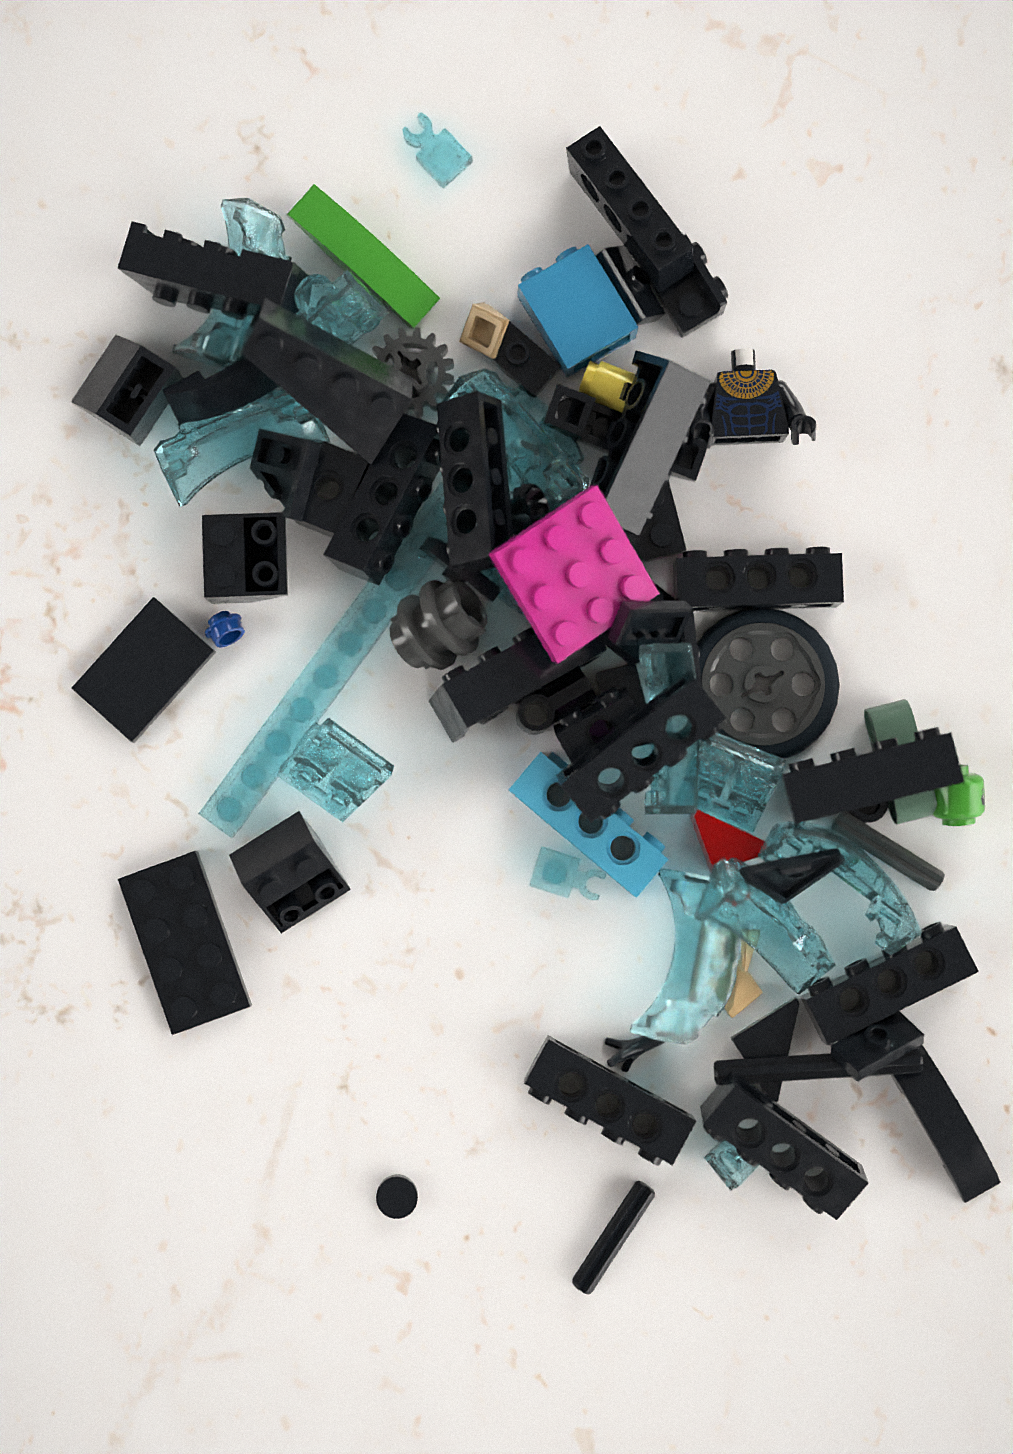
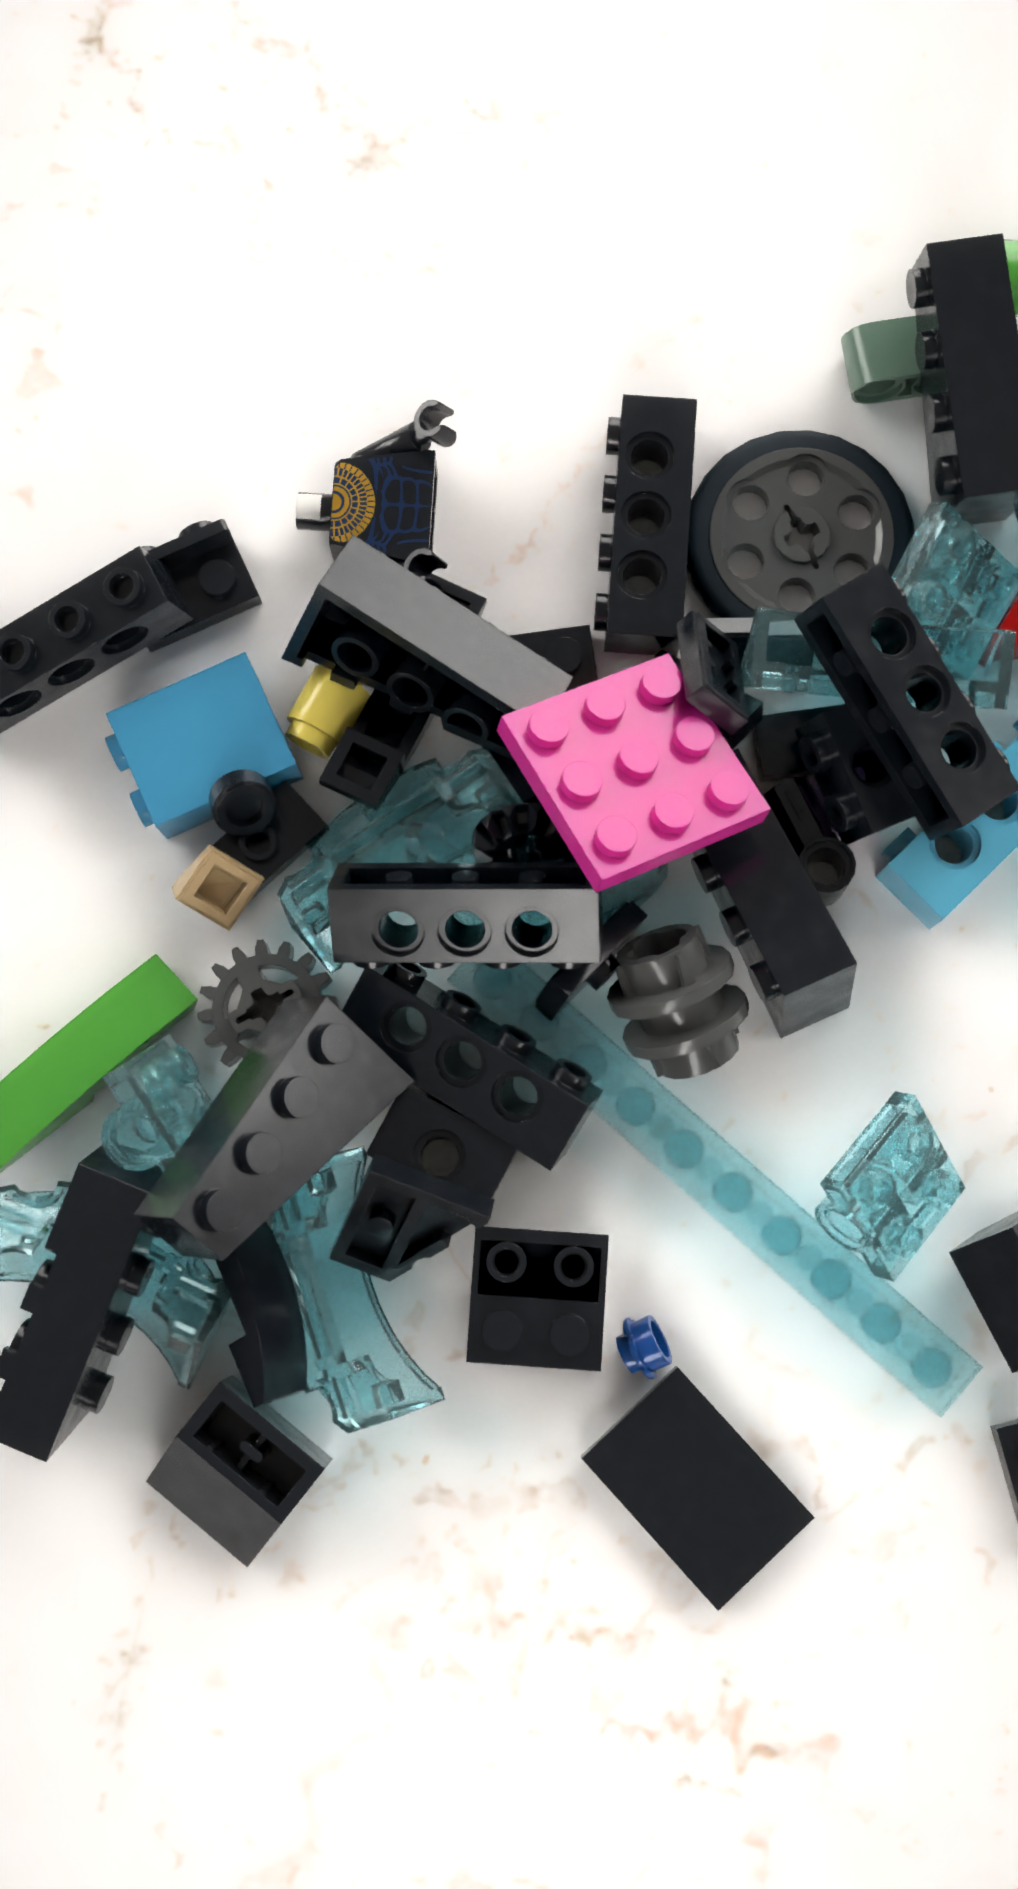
camera: 85 degrees left, 5 degrees down
(538, 337) = (242, 802): none -> black tile
(631, 284) = (172, 660): black plate -> none

